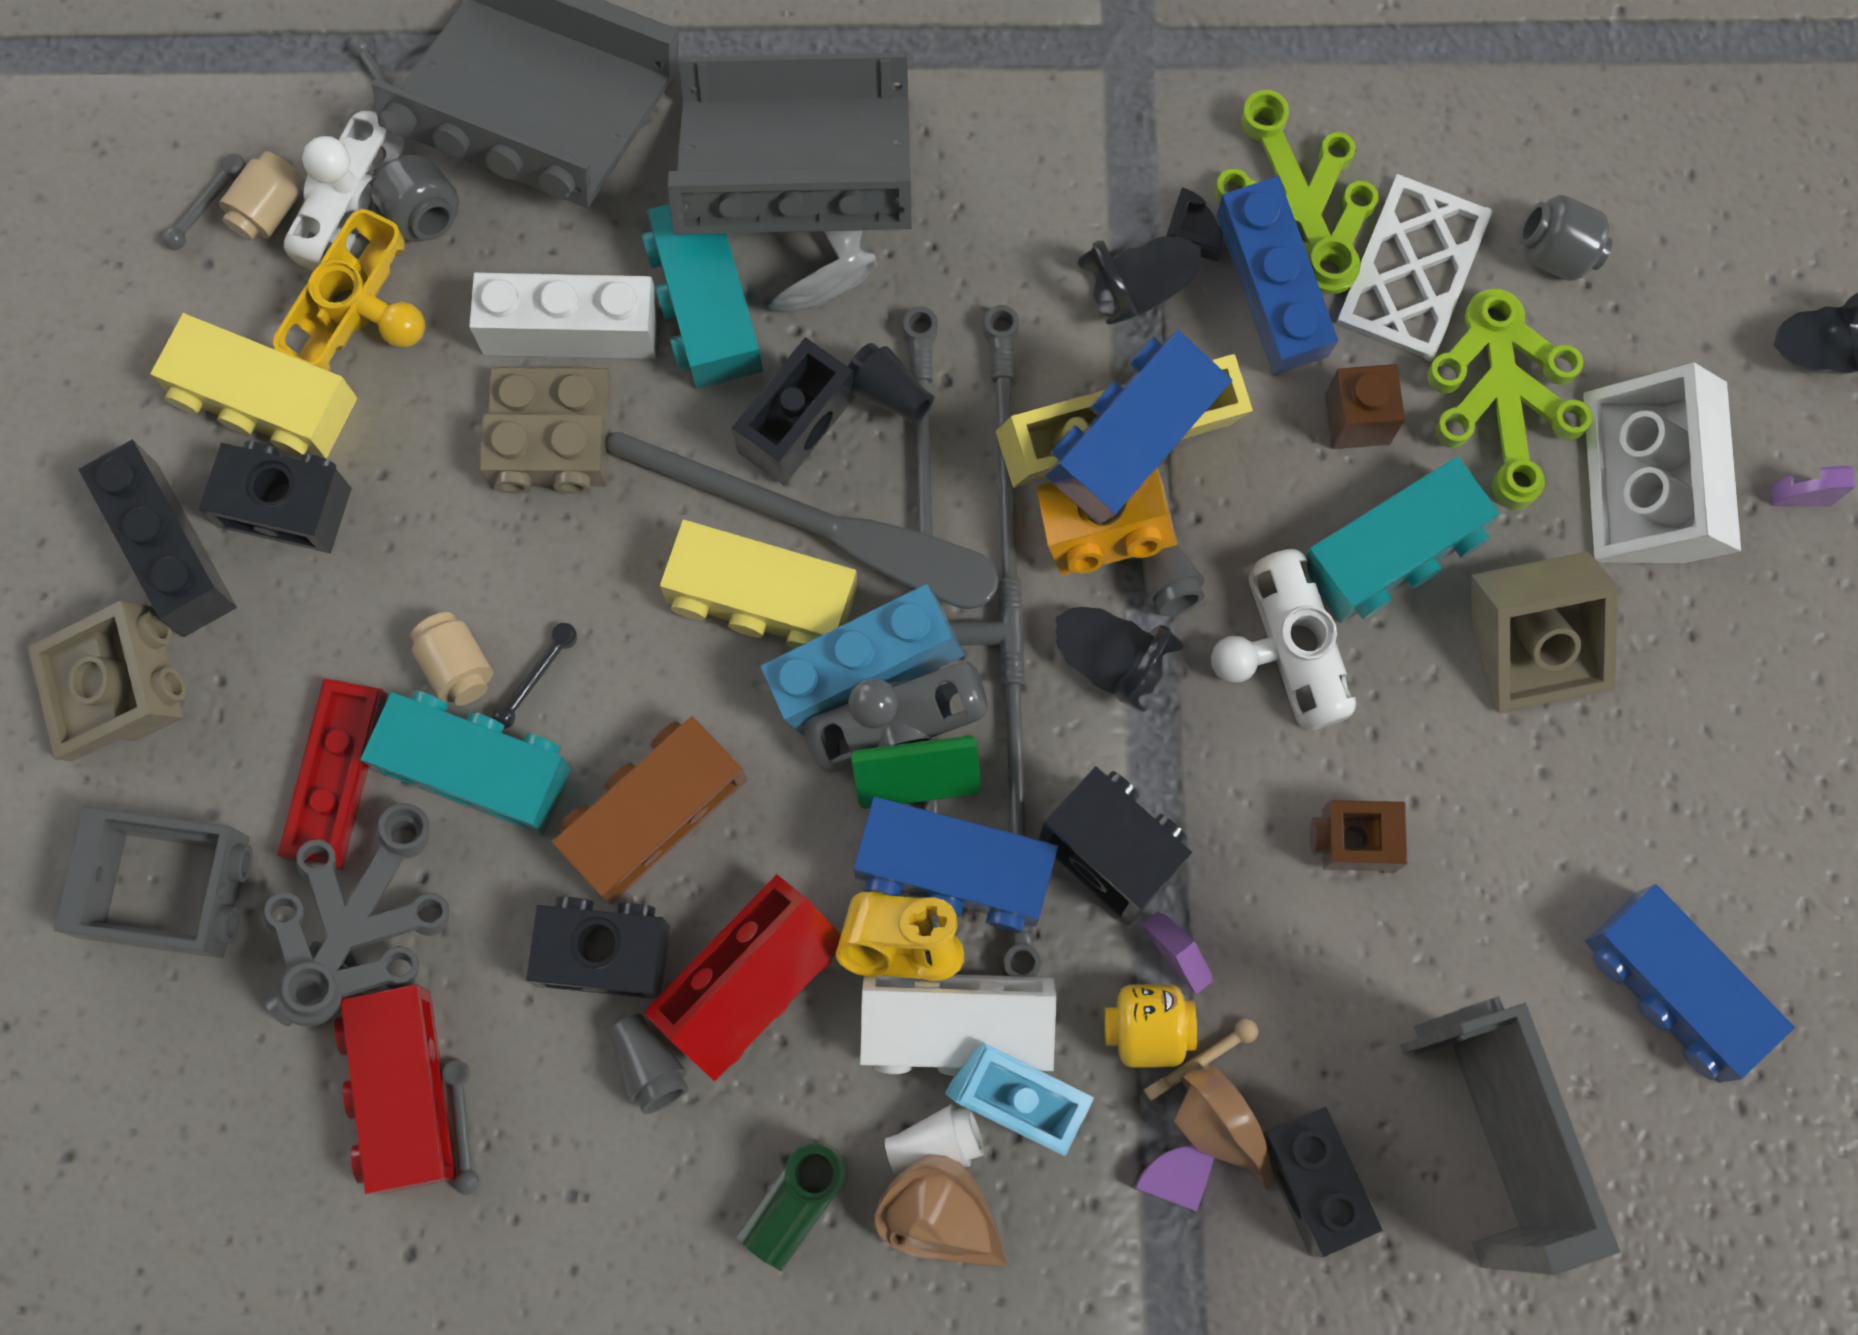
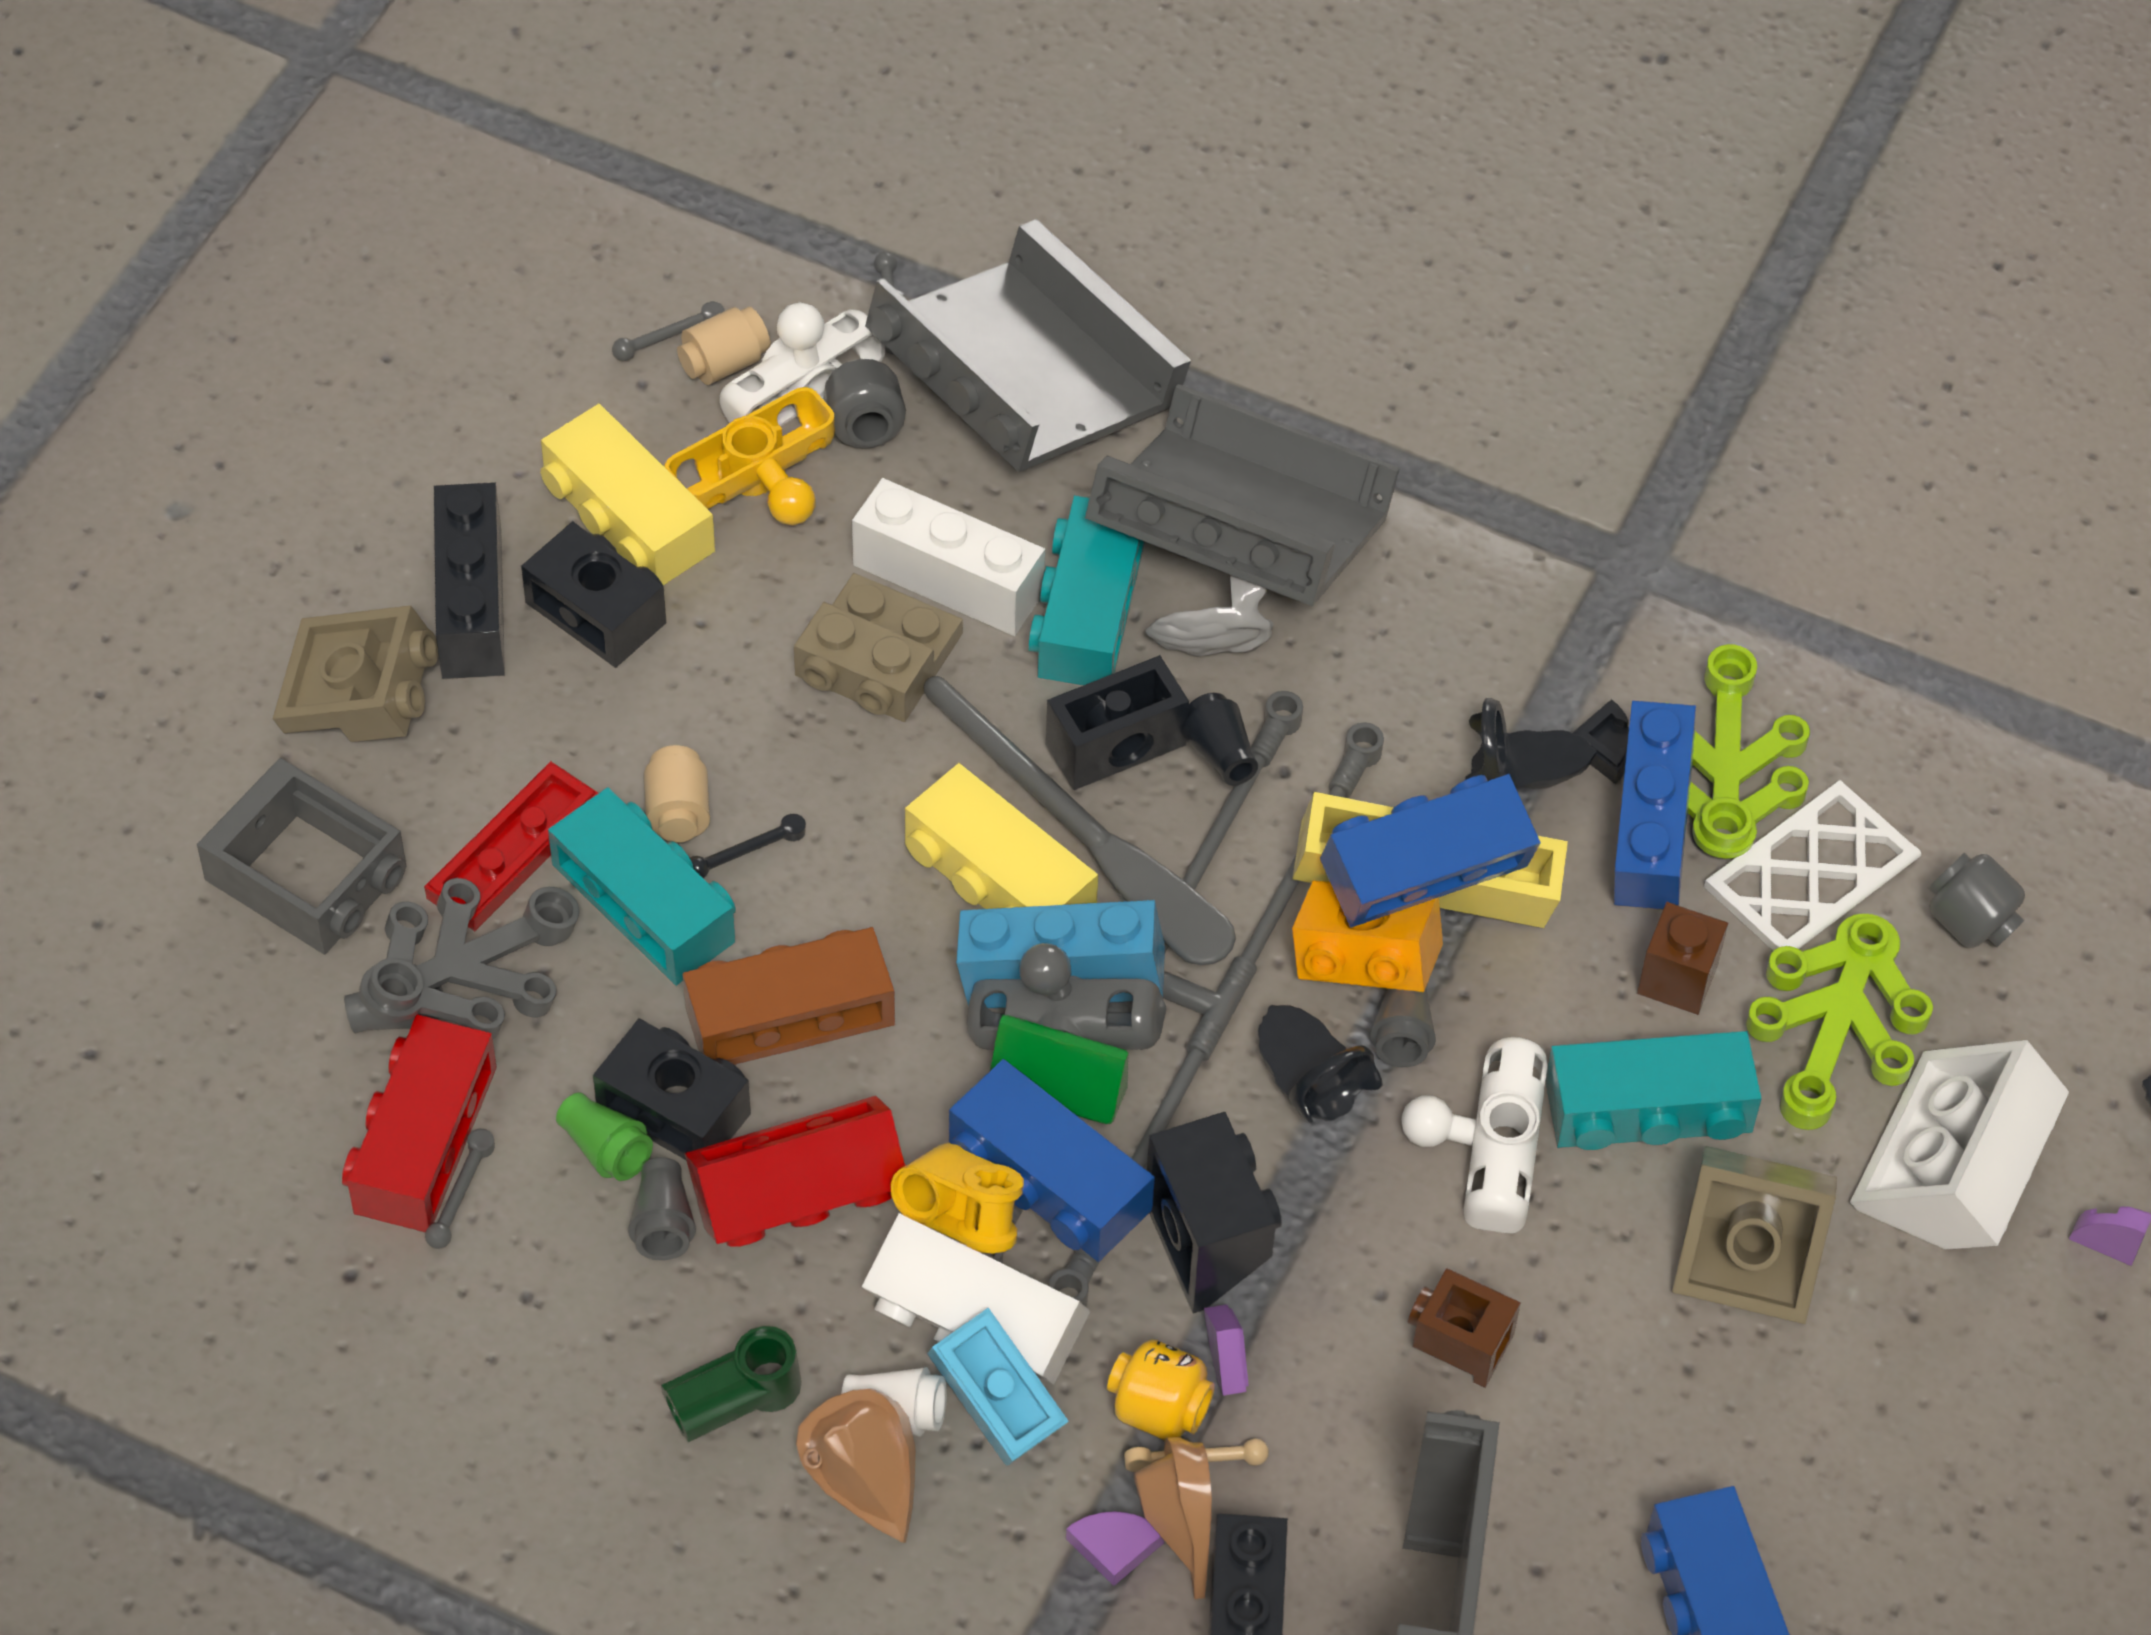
camera: 25 degrees right, 20 degrees down
(563, 1020) = (608, 1139): none -> bright green cone

